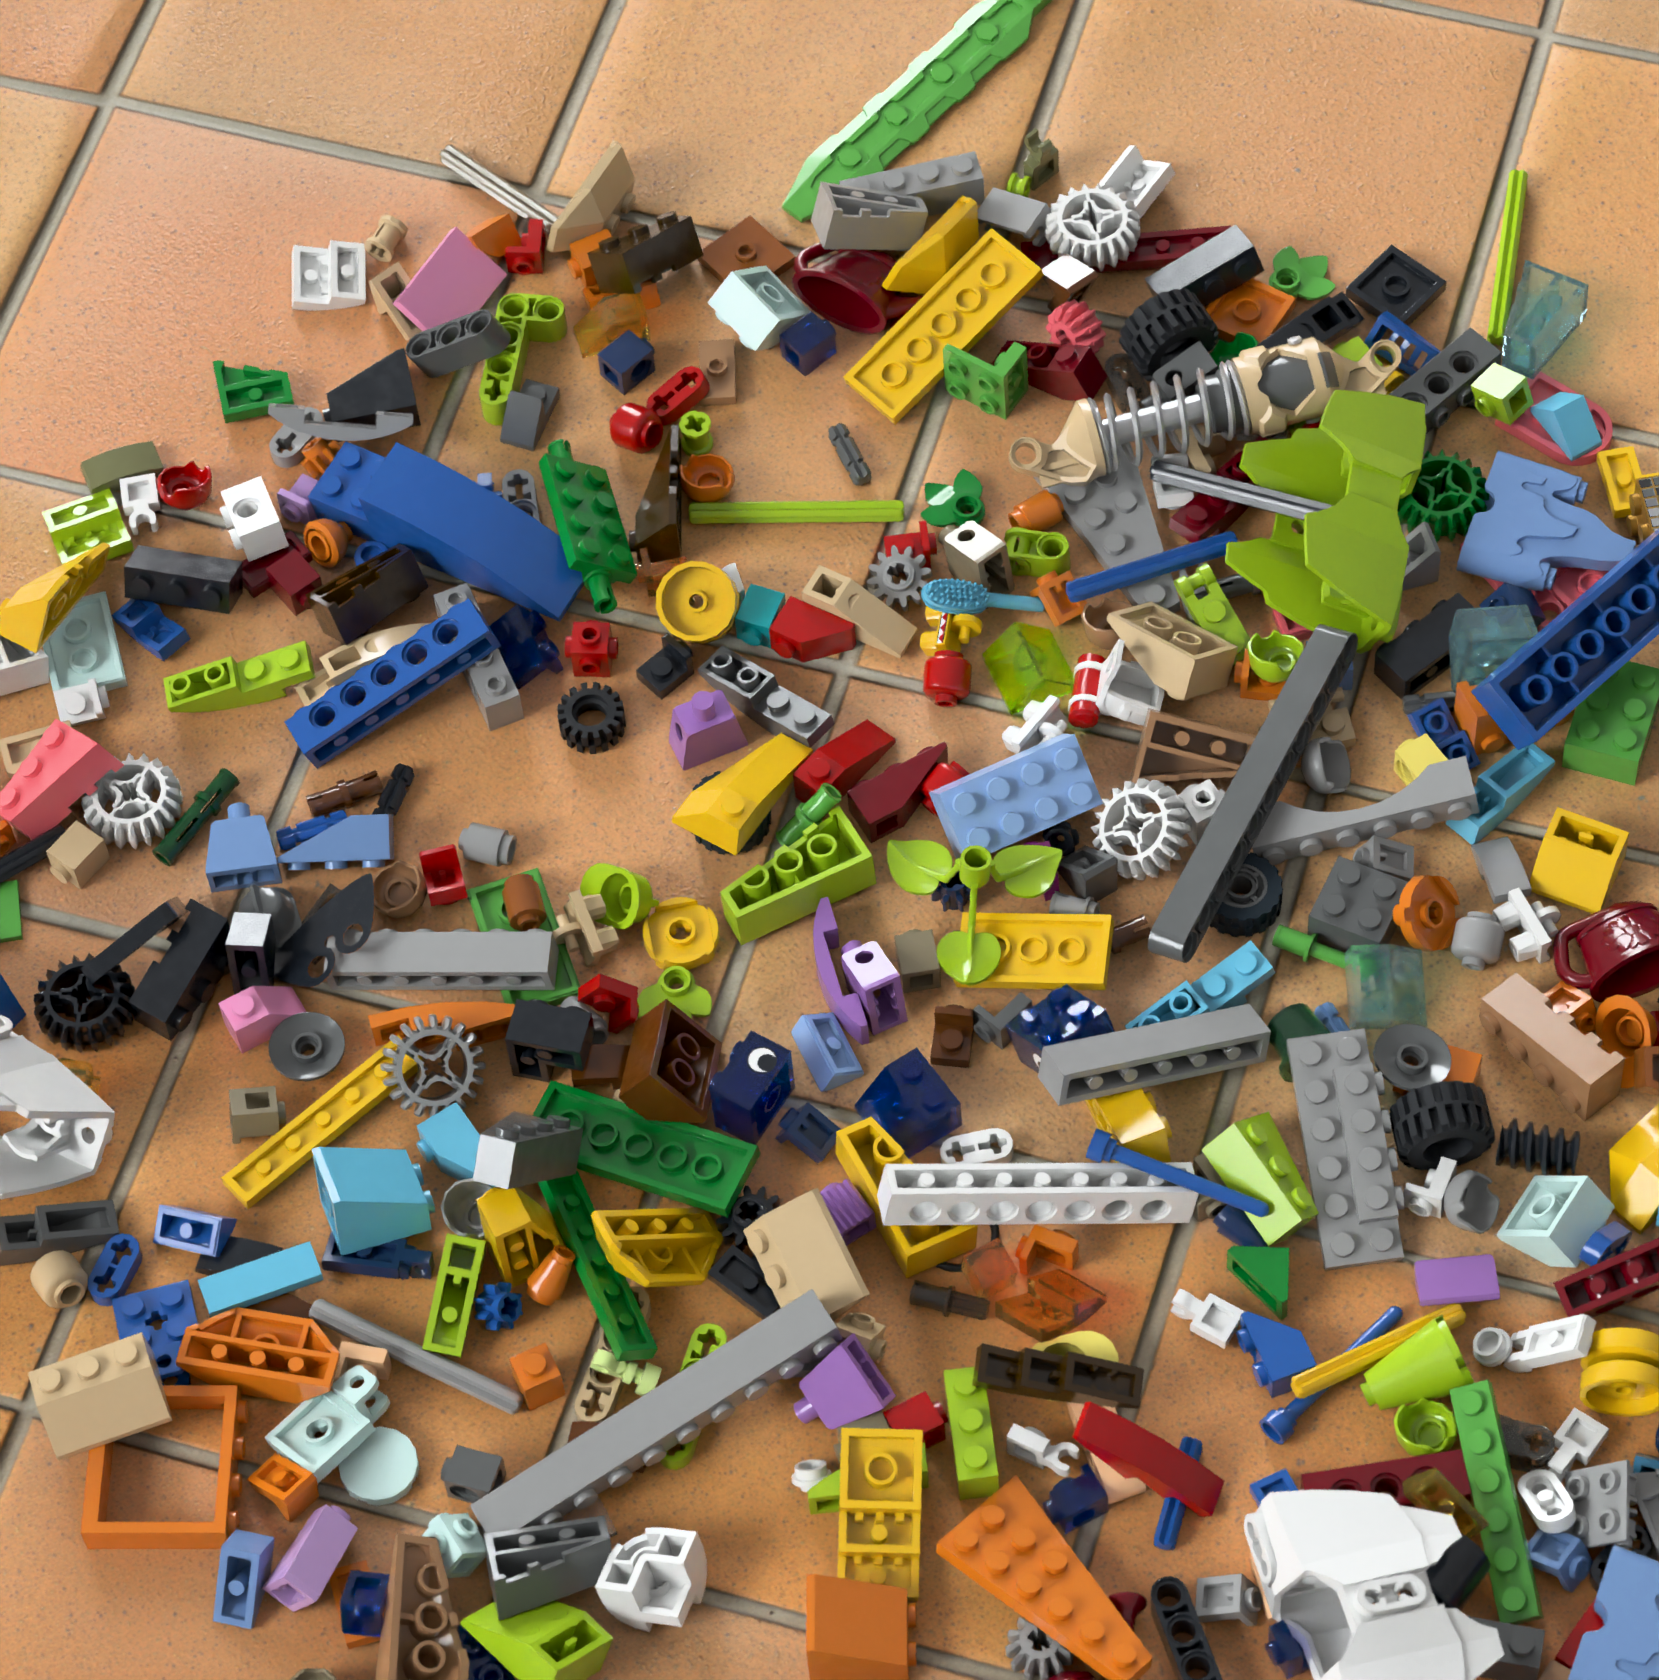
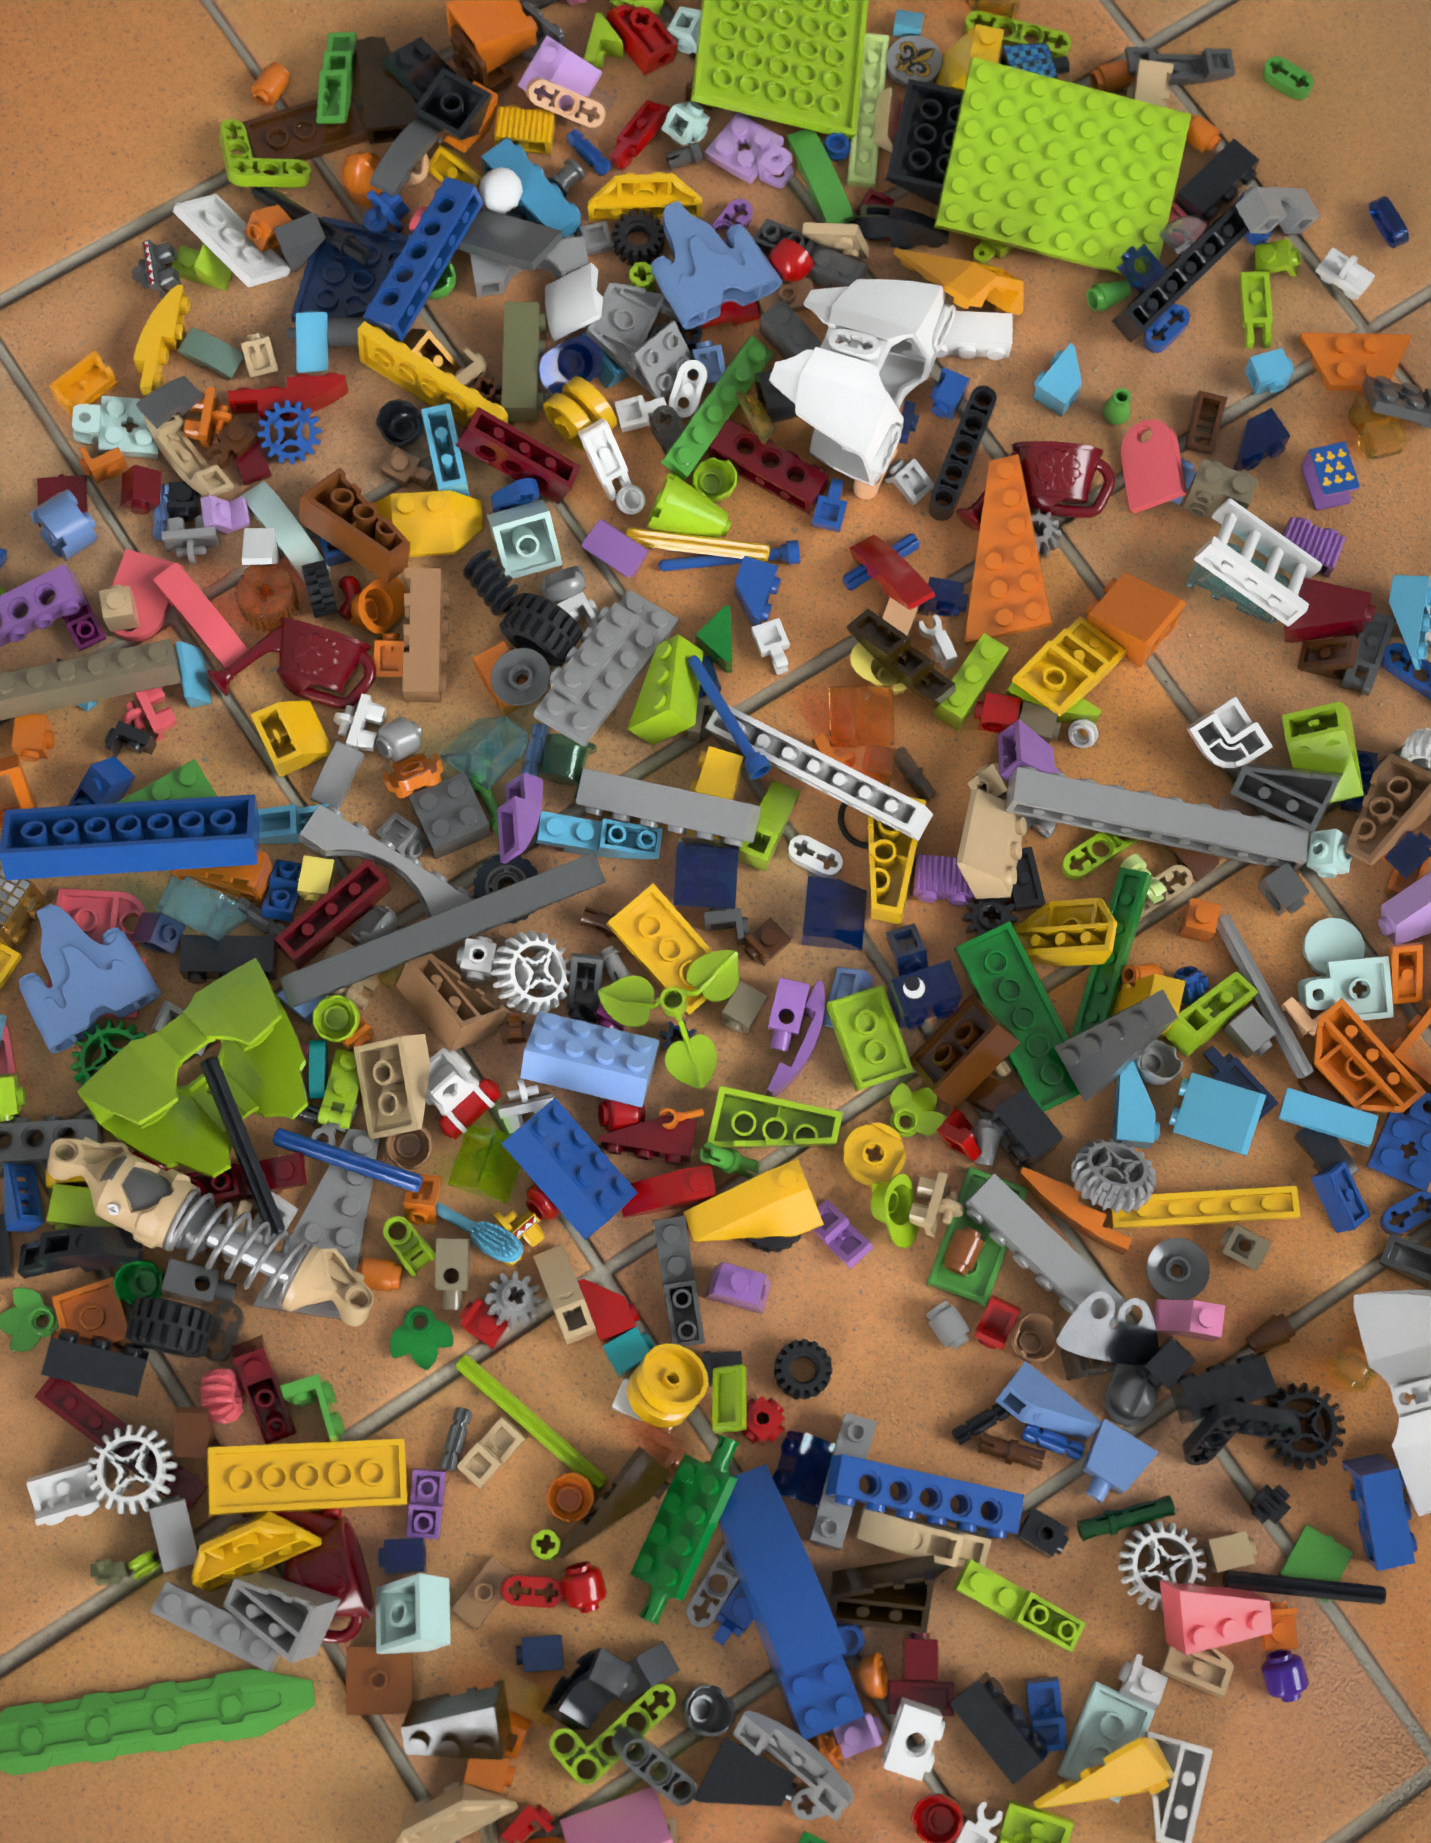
camera: 150 degrees left, 15 degrees up
(67, 917) = (1270, 1504): none -> black gear
(172, 1062) = (1271, 1334): none -> reddish brown cone
(263, 748) = (1042, 1533): none -> black brick
(401, 1310) = (1250, 1032): none -> light grey brick
(448, 418) = (708, 1710): none -> dark grey hair
(562, 354) = (588, 1689): none -> black brick
(634, 632) = (729, 1398): none -> lime tile
(656, 850) = (841, 1236): none -> medium lavender slope
(777, 1014) = (869, 1037): none -> lime tile
(809, 467) = (491, 1452): none -> tan slope
(827, 395) = (426, 1503): none -> medium lavender slope
(891, 806) = (680, 1116): none -> orange hand
(944, 691) = (570, 1168): none -> blue brick
(1042, 1122) = (773, 818): none -> lime slope
(1109, 774) = (515, 1031): none -> reddish brown plate
(1254, 617) = (318, 1068): none -> teal beam
(1288, 948) = (519, 815): none -> medium lavender slope
(1374, 737) = (333, 914): none -> dark red brick

